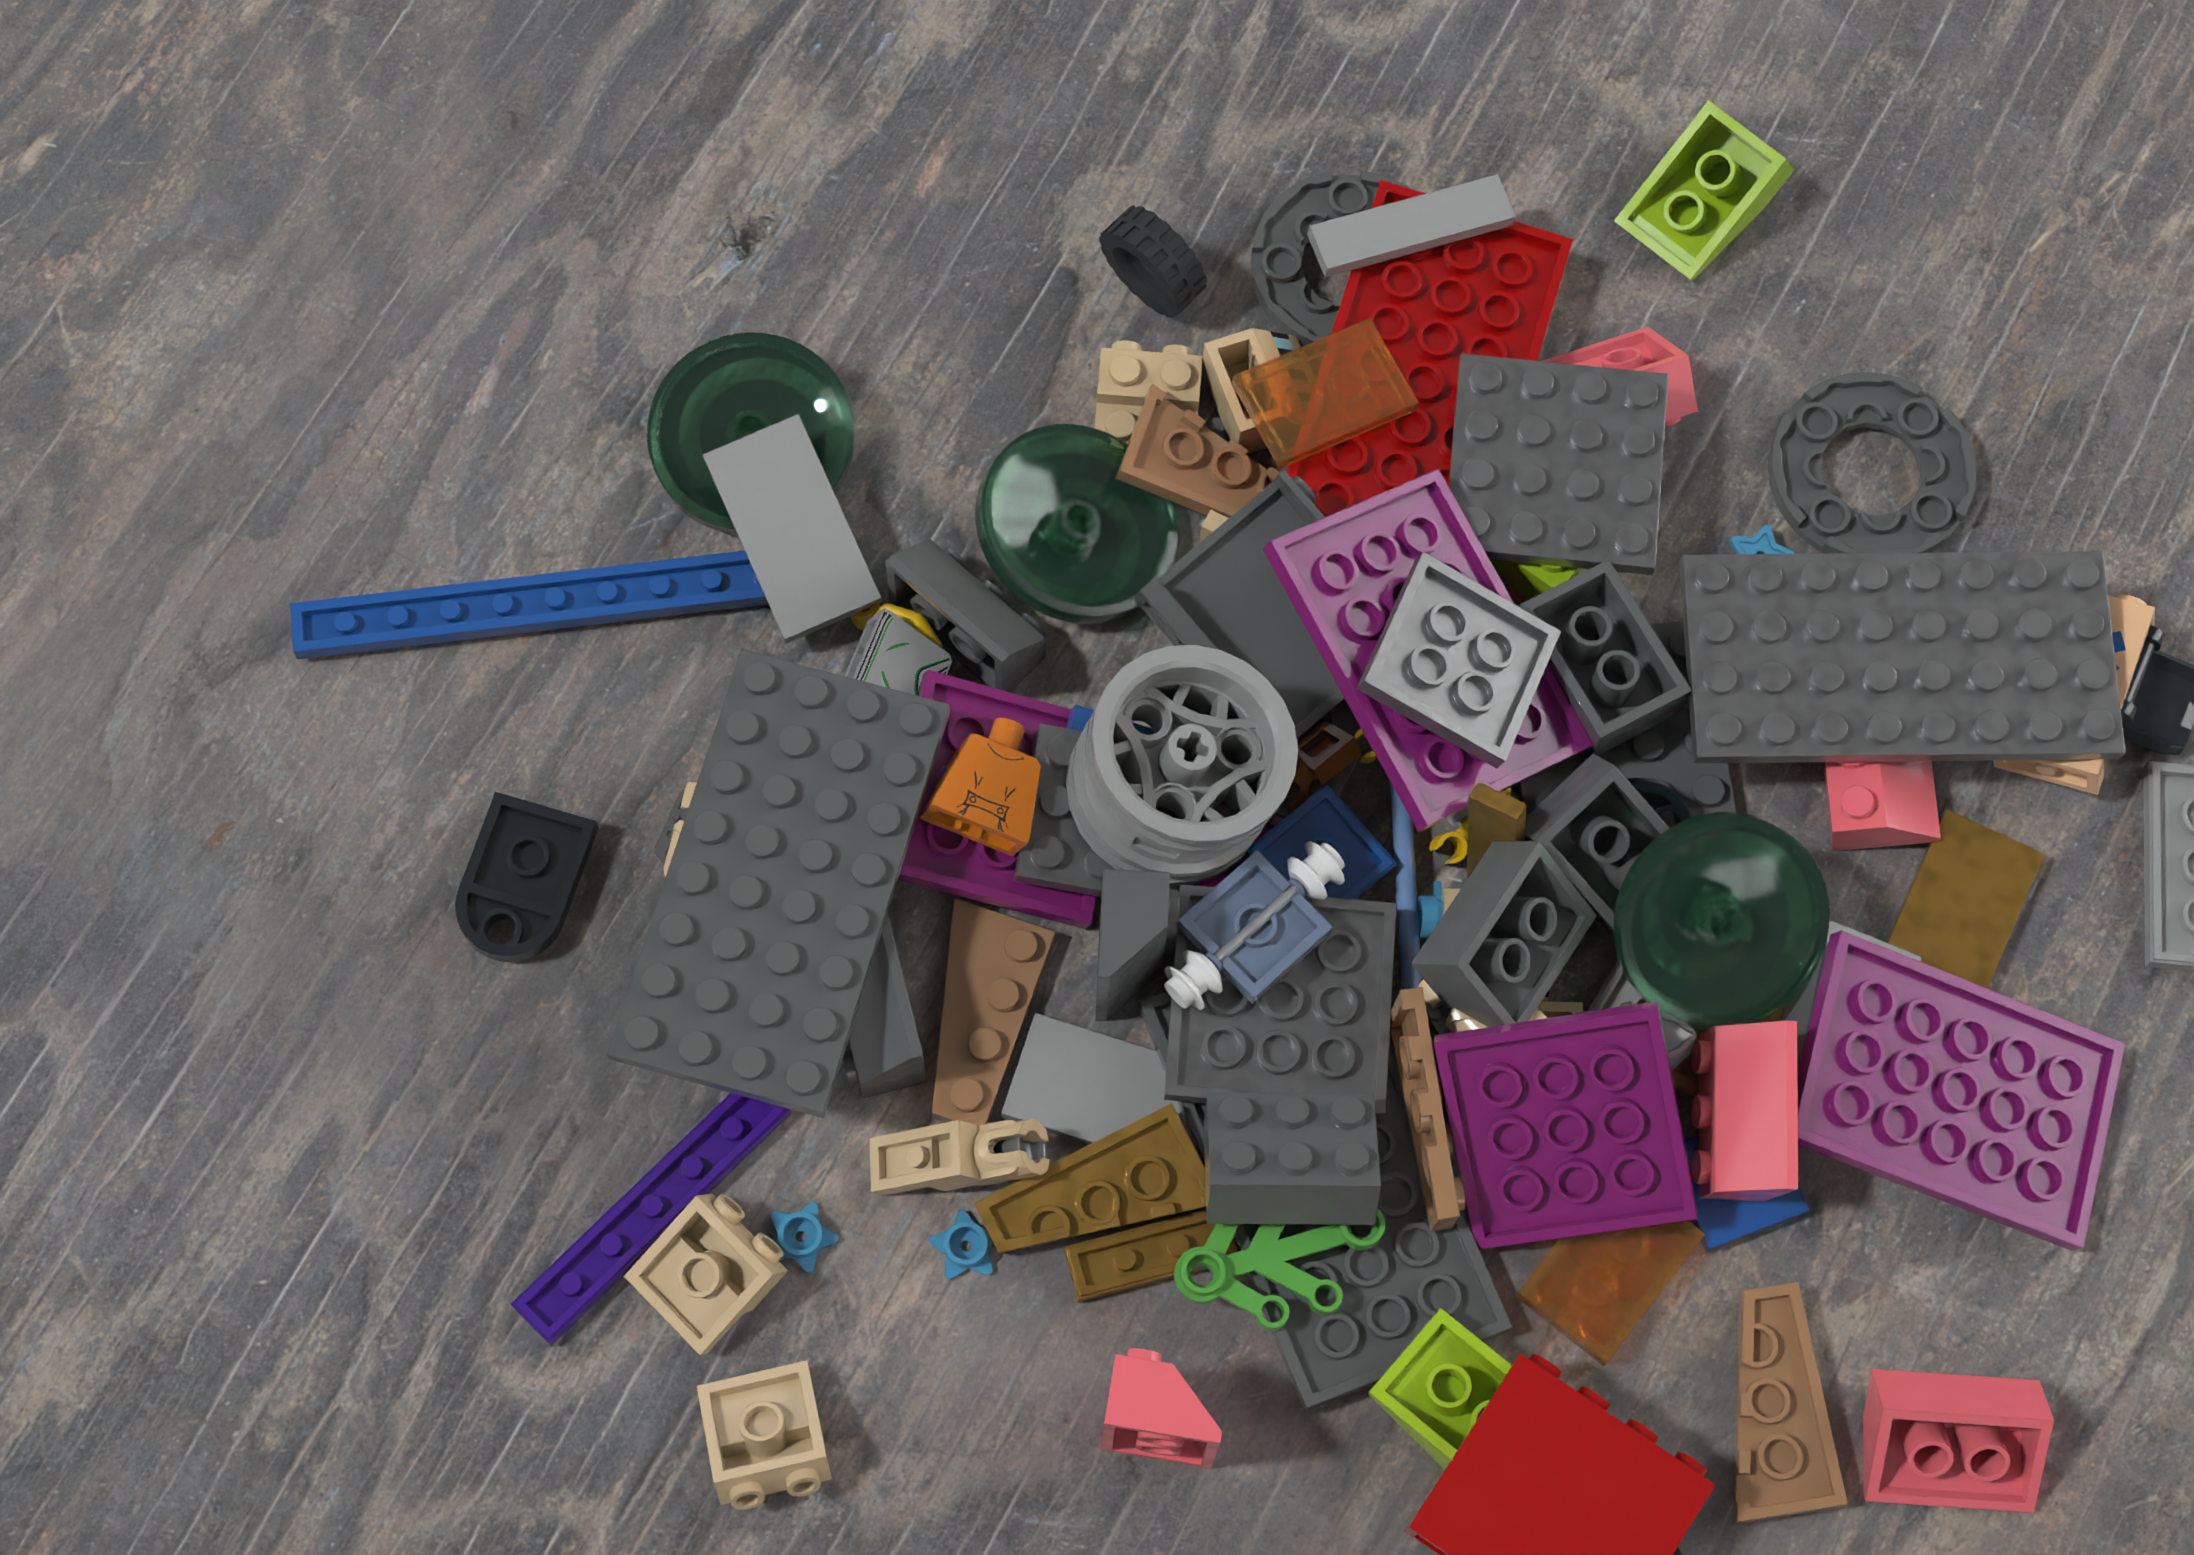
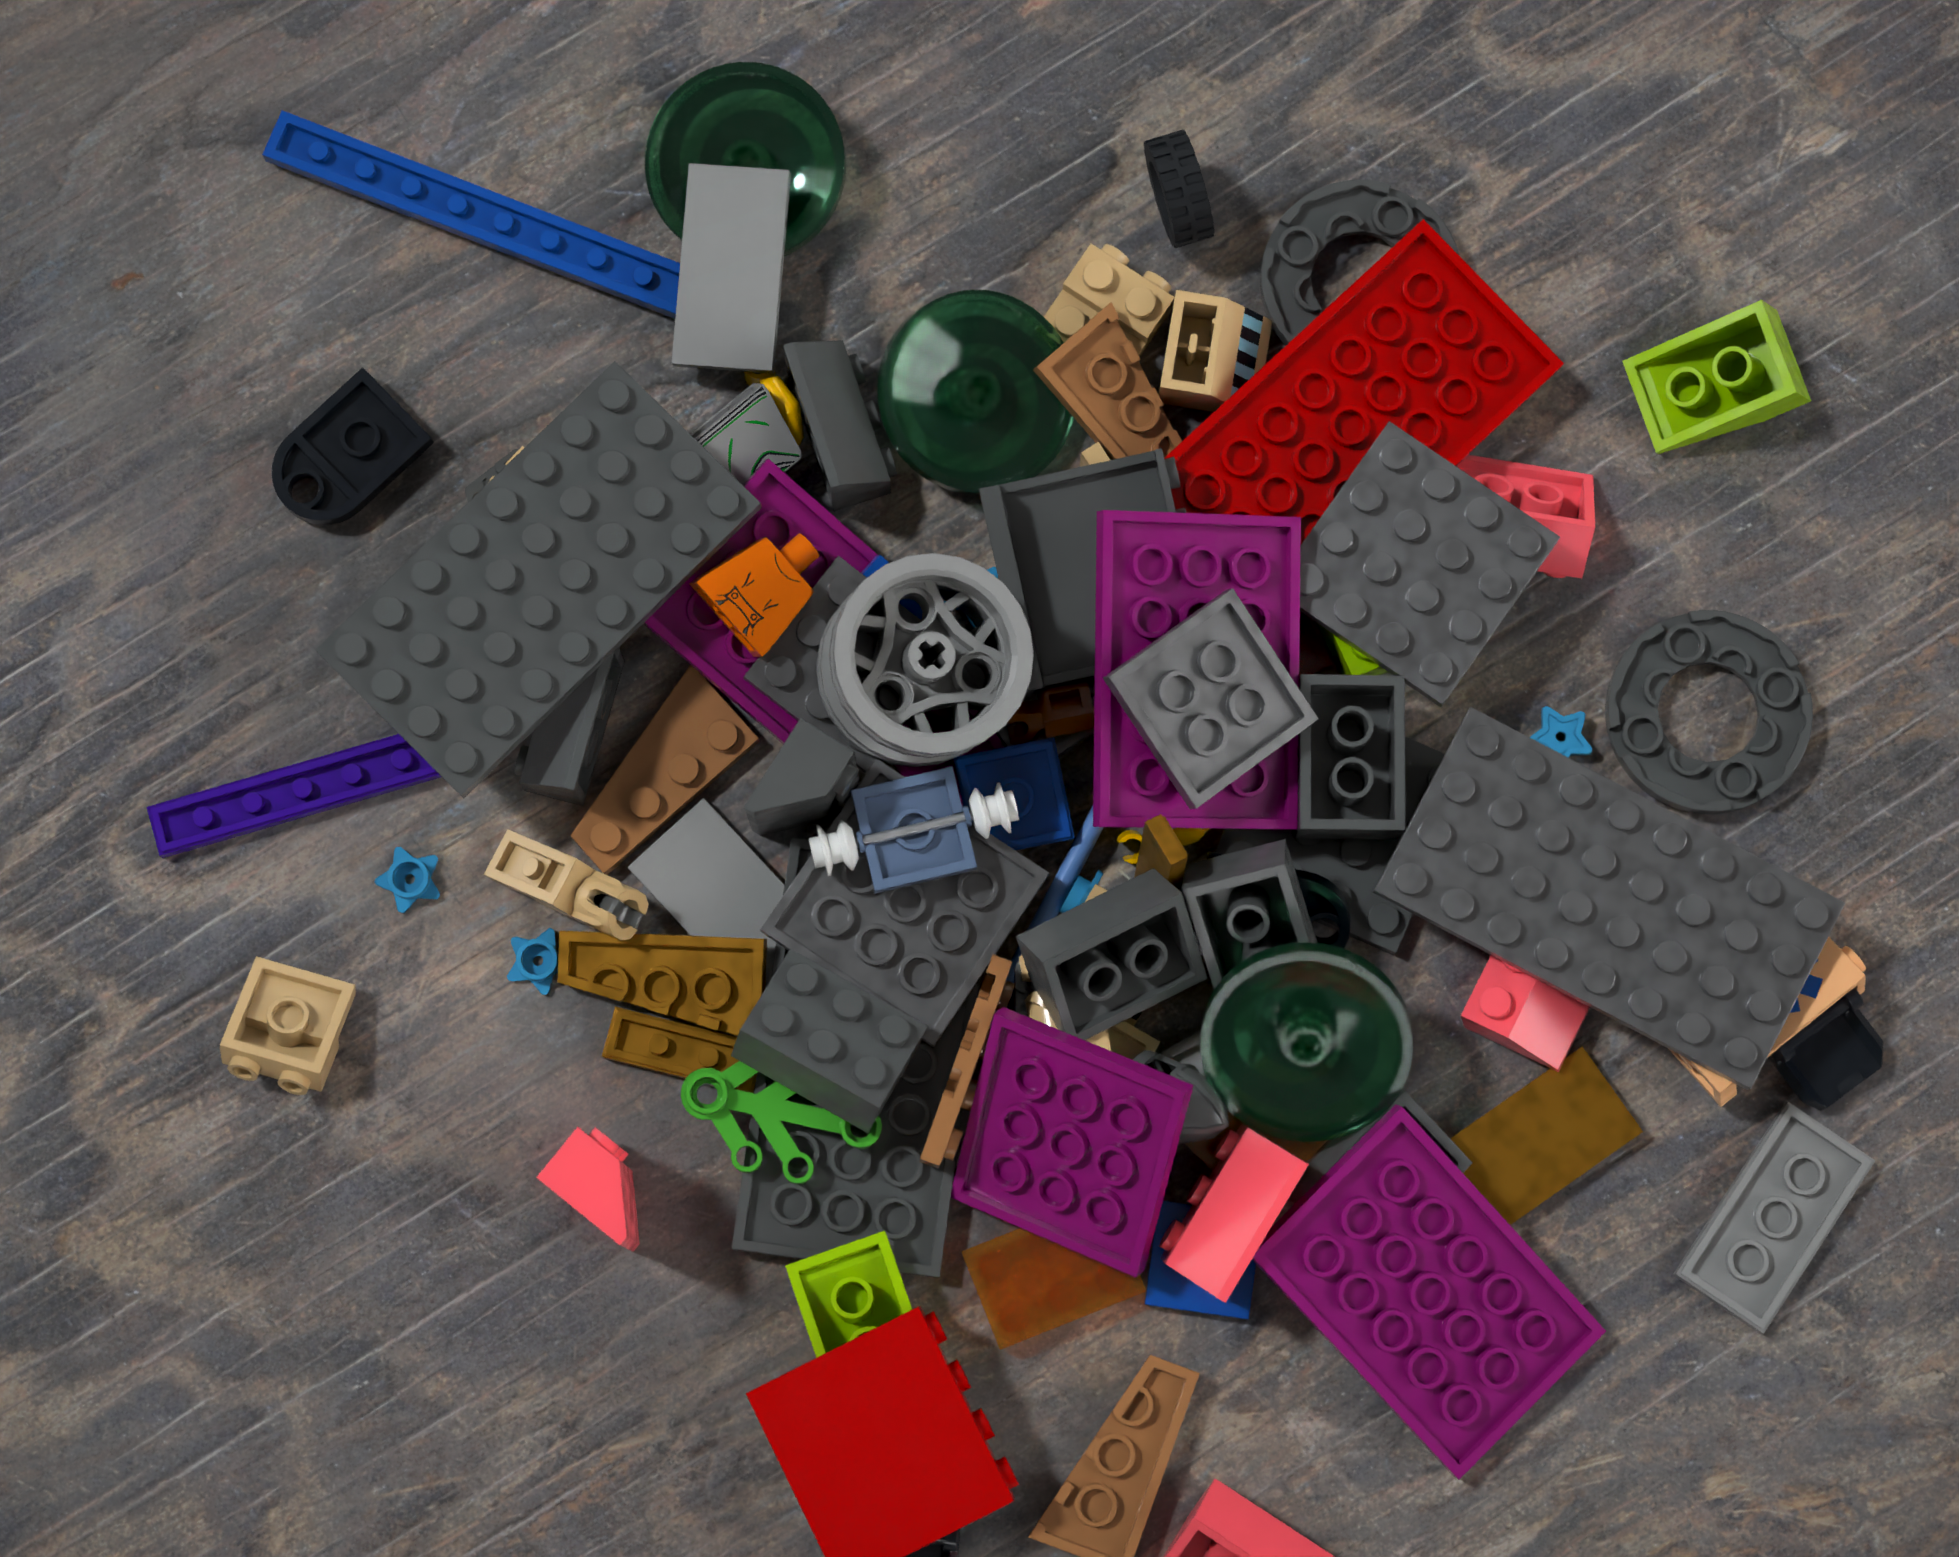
camera: 30 degrees right, 10 degrees up
(707, 1270) = (315, 867): tan plate -> none
(1324, 393) = (1251, 392): clear orange tile -> none
(1411, 225) = (1422, 277): light grey tile -> none

